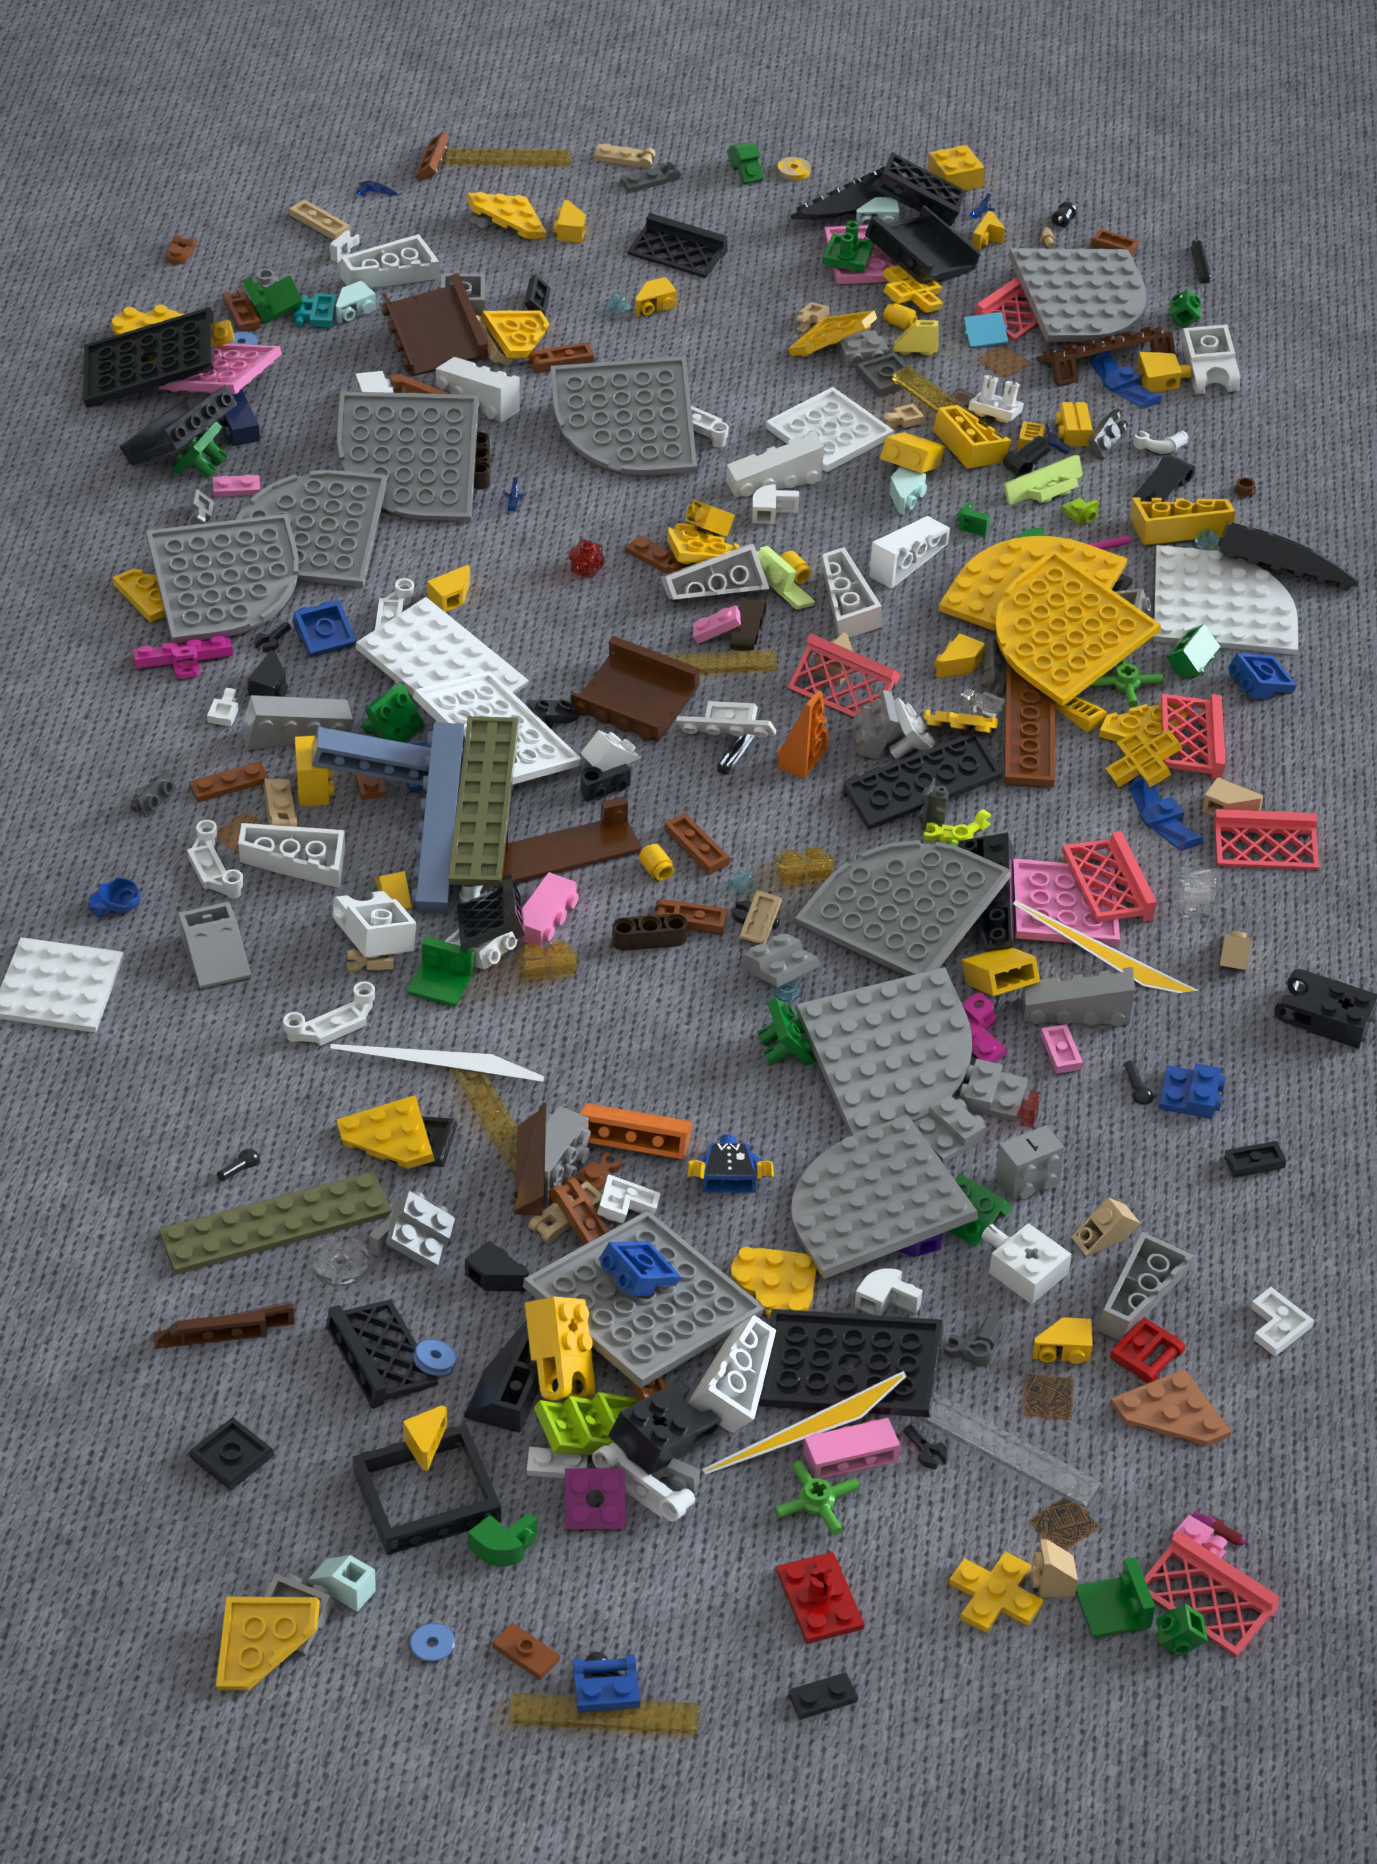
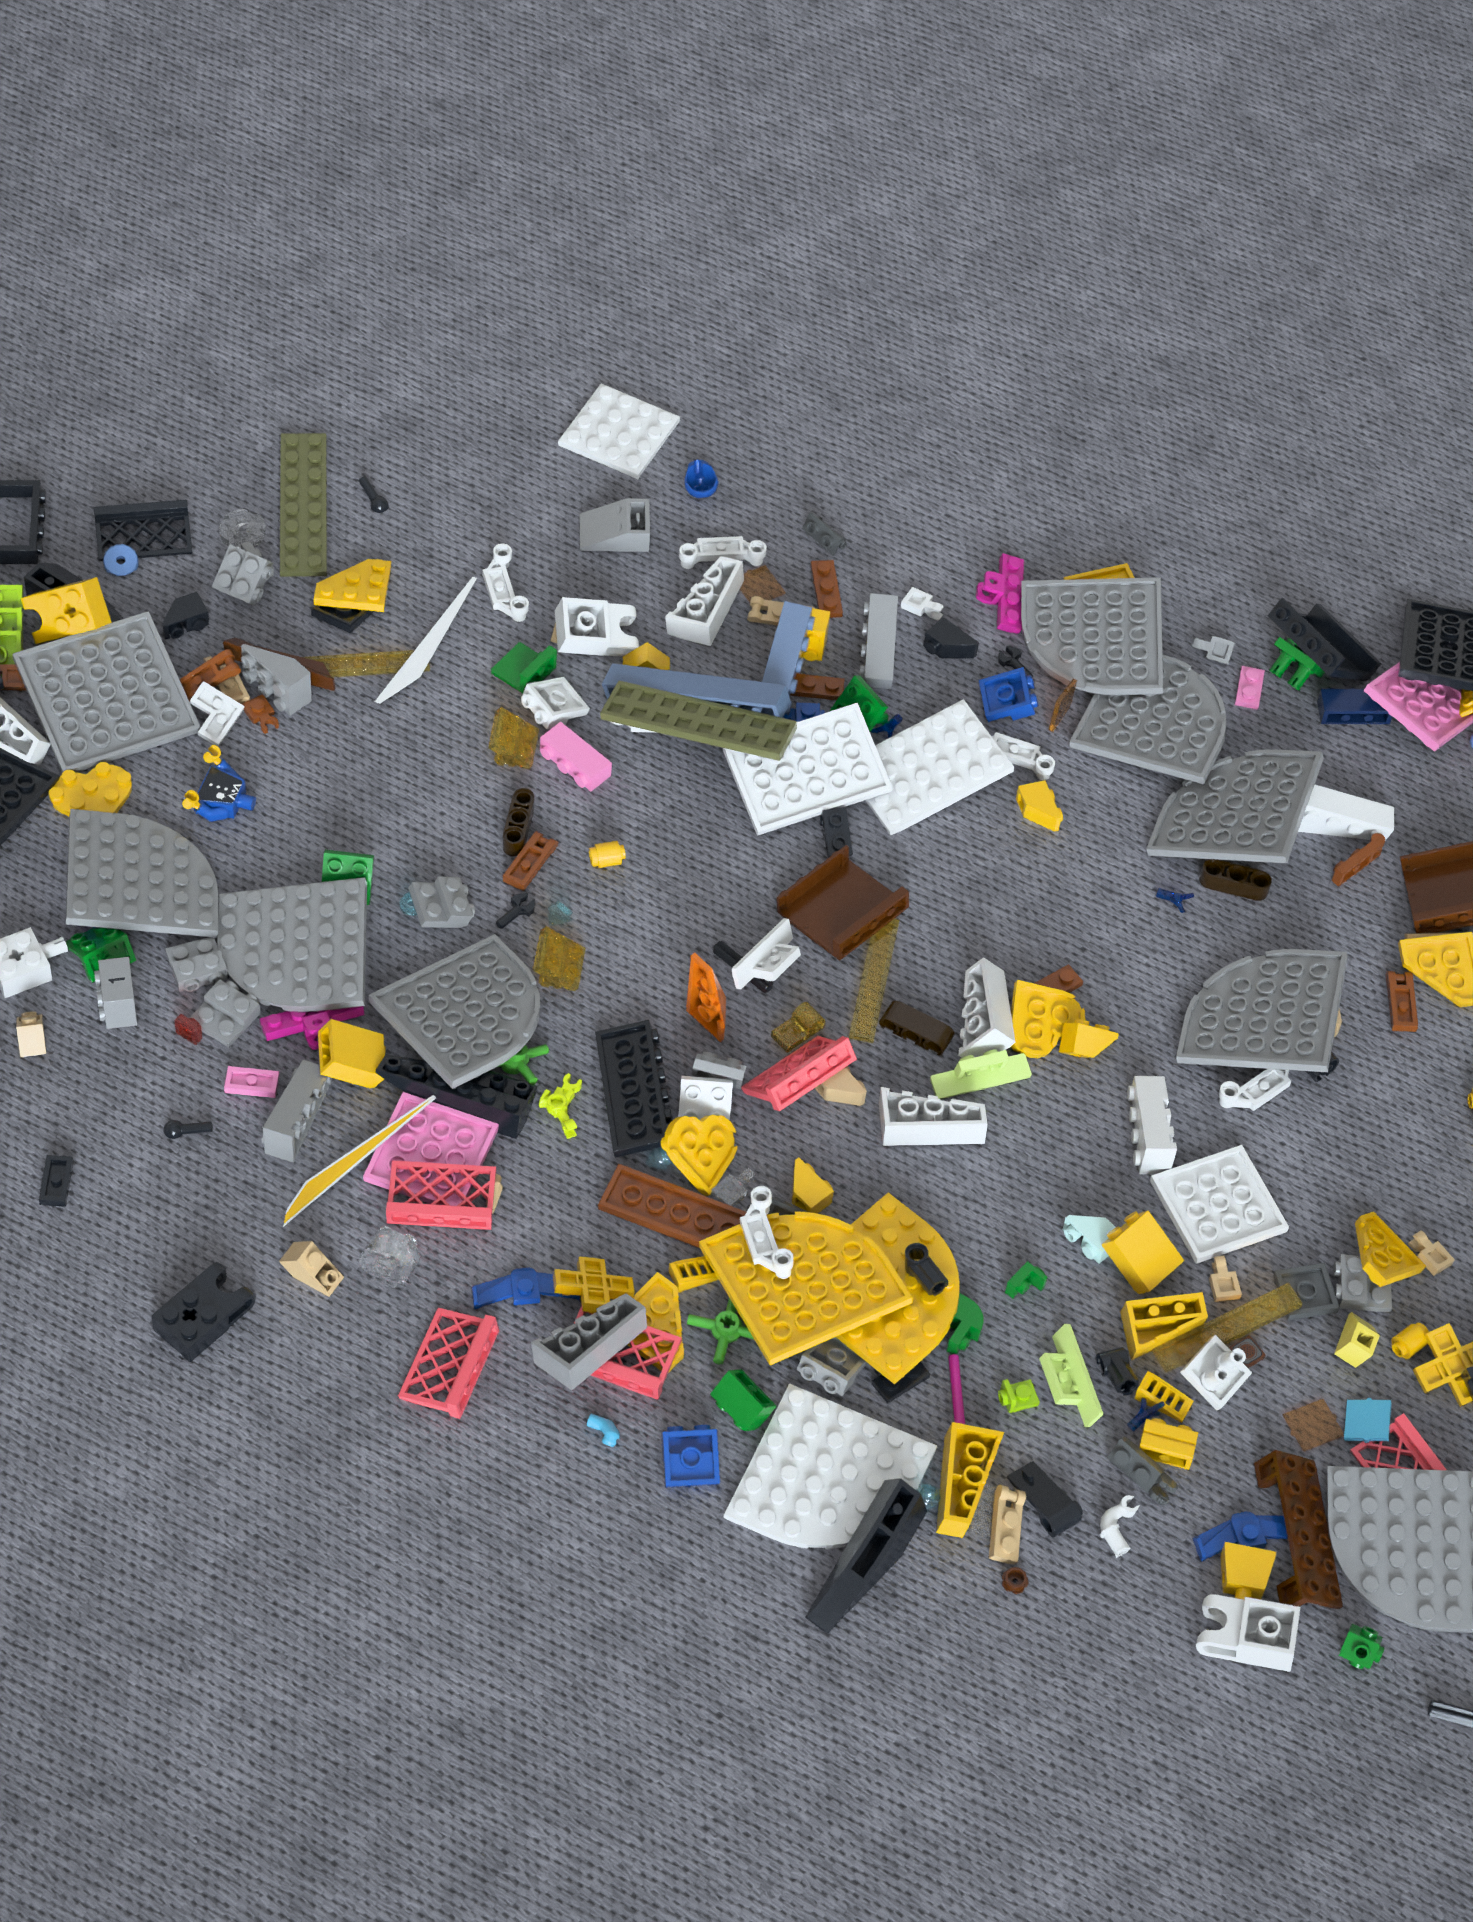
camera: 105 degrees right, 10 degrees up
(226, 1328) = (212, 455): reddish brown wedge -> none
(231, 1453) = (89, 427): black plate -> none
(326, 583) = (1062, 704): none -> clear orange piece
(424, 1434) = (25, 514): yellow slope -> none
(491, 915) = (554, 706): black fence -> none
(497, 392) = (1352, 907): white wedge -> none
(573, 846) = (652, 795): reddish brown bracket -> none
(586, 558) = (1052, 921): clear red brick -> none
(597, 784) = (726, 838): black plate -> none
(608, 751) = (763, 862): white slope -> none
(638, 1131) = (292, 744): orange brick -> none
(638, 1267) = (124, 683): blue plate -> none
(697, 843) = (621, 893): dark orange plate -> none
(716, 624) = (918, 995): bright pink plate -> none
(760, 918) = (501, 905): tan plate -> none
(769, 501) = (1102, 1101): white brick -> none
(783, 693) = (801, 1026): none -> clear yellow plate
(799, 565) = (993, 1093): yellow brick -> none
(886, 1287) = (40, 854): white brick -> none
(906, 550) = (986, 1196): white wedge -> none
(935, 805) = (590, 1079): dark grey hinge -> none
(1020, 550) = (924, 1269): none -> black piece
(1044, 652) = (760, 1236): none -> white plate
(1192, 1090) = (158, 1165): blue plate -> none
(1203, 492) = (1006, 1525): none -> tan plate
(1213, 729) = (589, 1343): none -> light grey wedge
(1230, 797) = (515, 1345): tan slope -> none
(1262, 735) = (607, 1427): none -> medium azure arm

